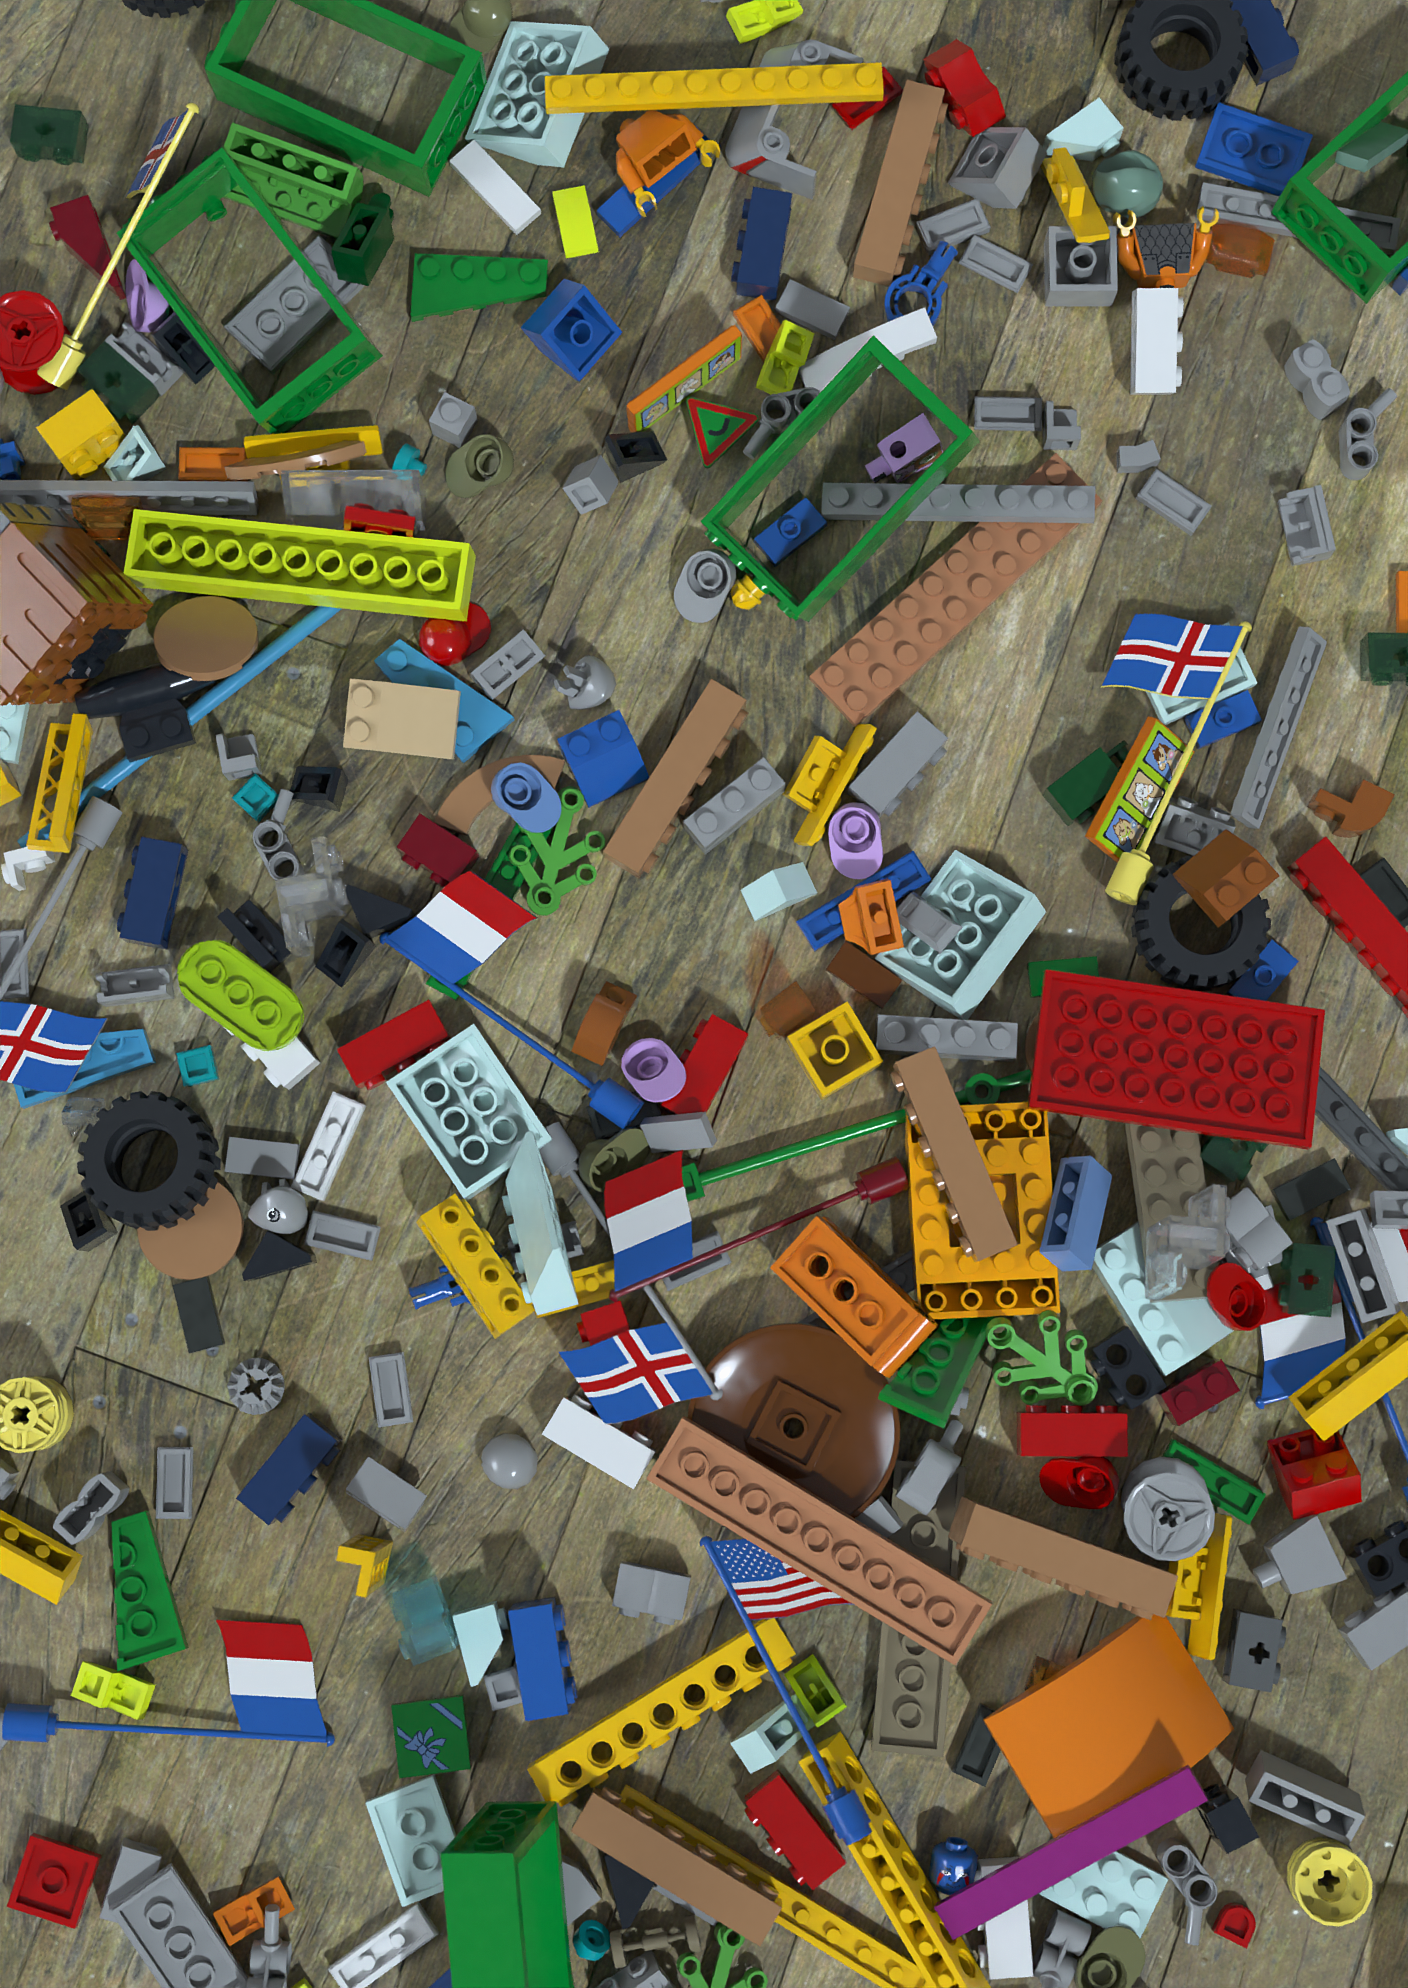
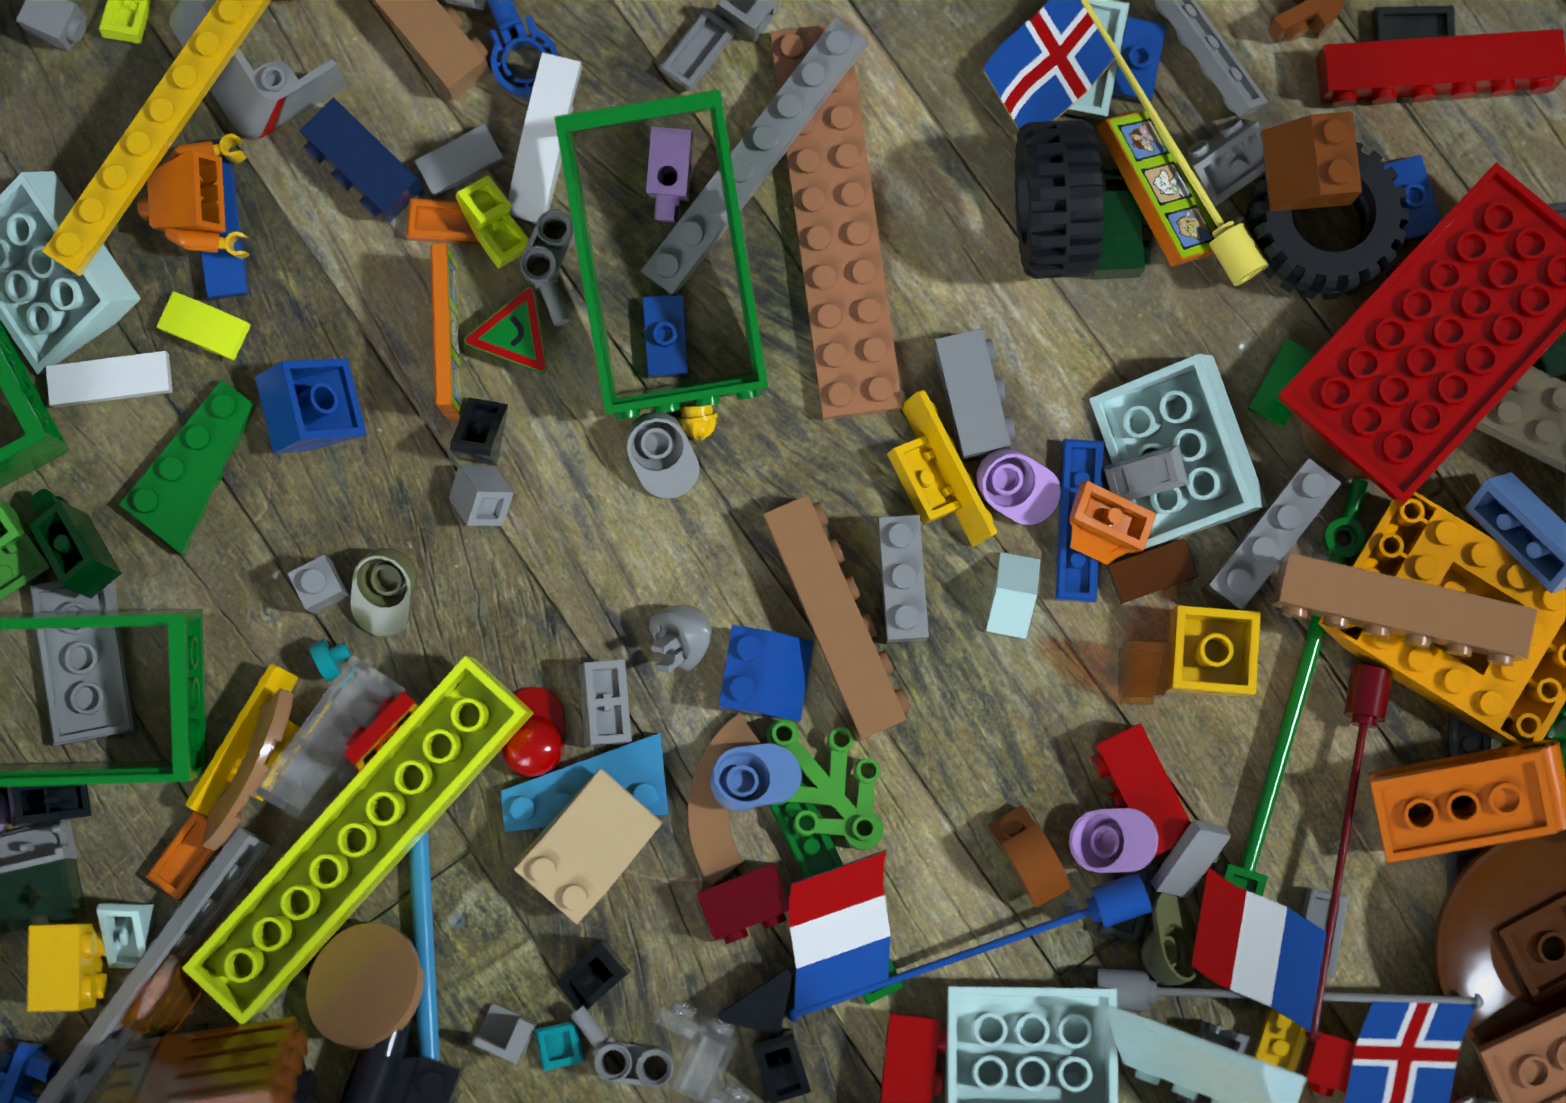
camera: 55 degrees left, 0 degrees up
(1073, 721) = (1058, 199): none -> black tyre

